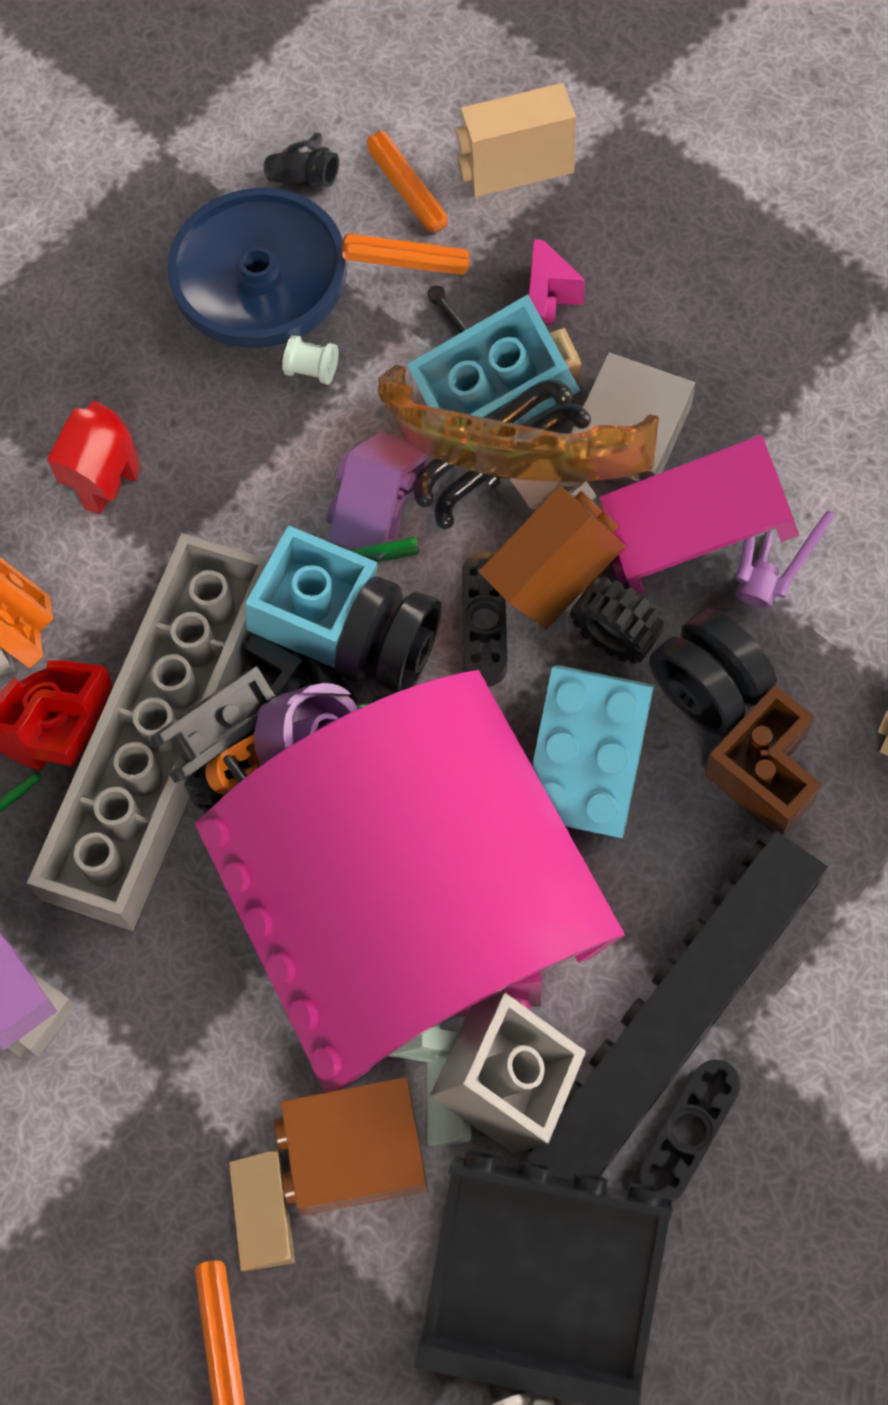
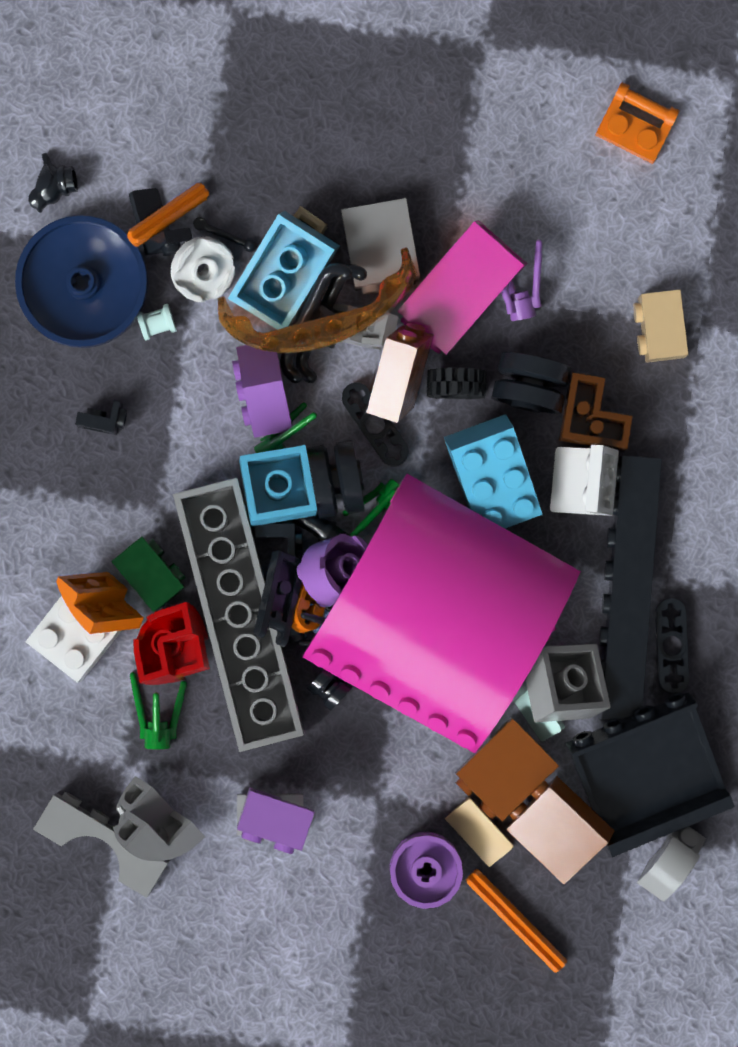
camera: 40 degrees left, 20 degrees up
(92, 616) = (149, 573): none -> dark green brick
(94, 454) = (80, 473): red brick -> none
(120, 1202) = (429, 889): none -> medium lavender wheel
(168, 426) = (97, 420): none -> black bracket
(202, 891) = (334, 693): none -> black wheel
(367, 1275) = (559, 829): none -> brick
(383, 275) = (167, 241): none -> black bracket
(399, 305) = (215, 276): none -> white plate
(407, 182) = (126, 154): orange axle -> none
(516, 140) = (185, 90): tan brick -> none
(553, 282) = (266, 174): dark pink slope -> none
(709, 835) = (584, 480): none -> white bracket

